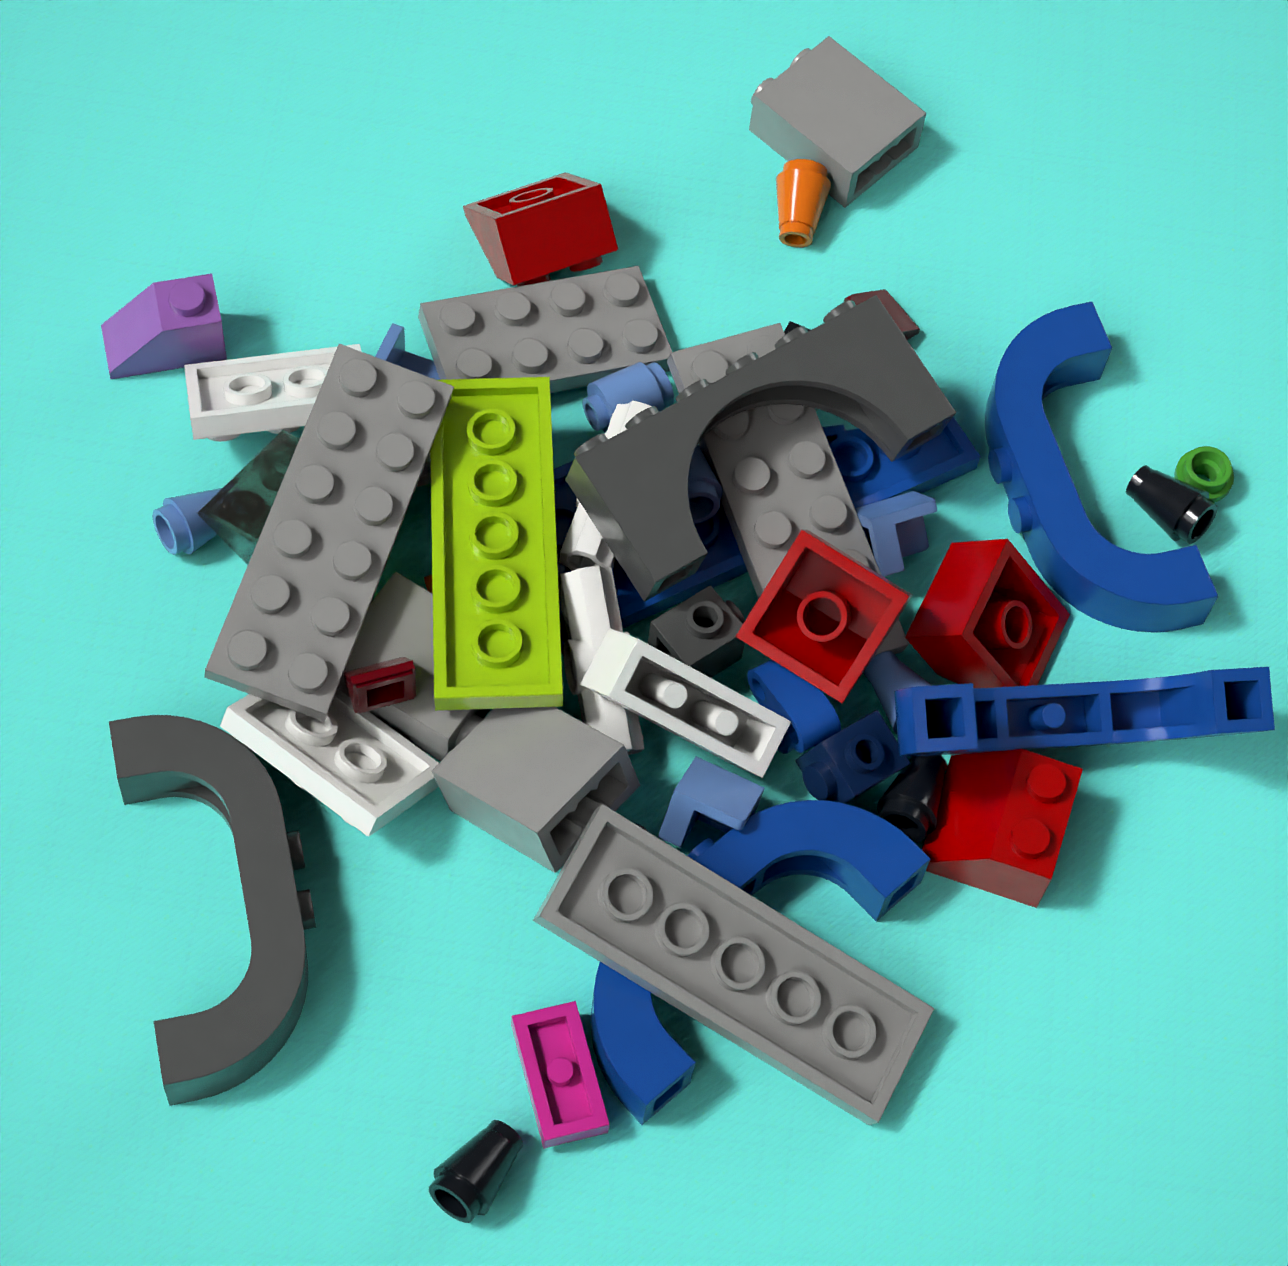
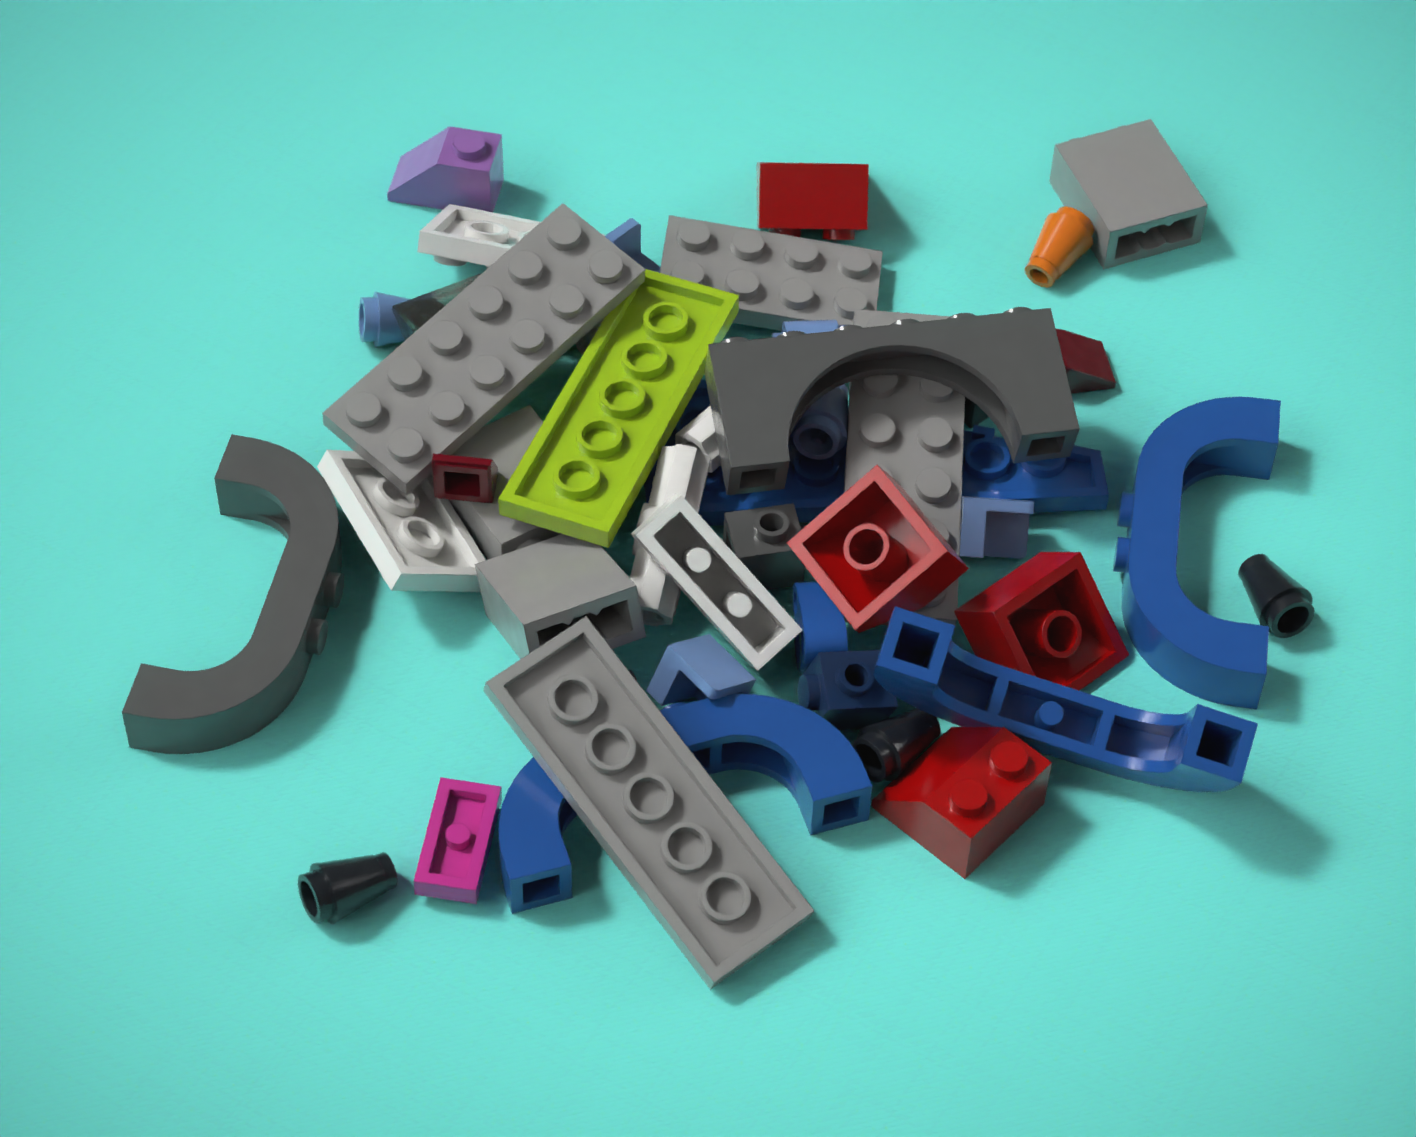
camera: 30 degrees right, 10 degrees down
(1212, 464) = (1330, 575): bright green plate -> none

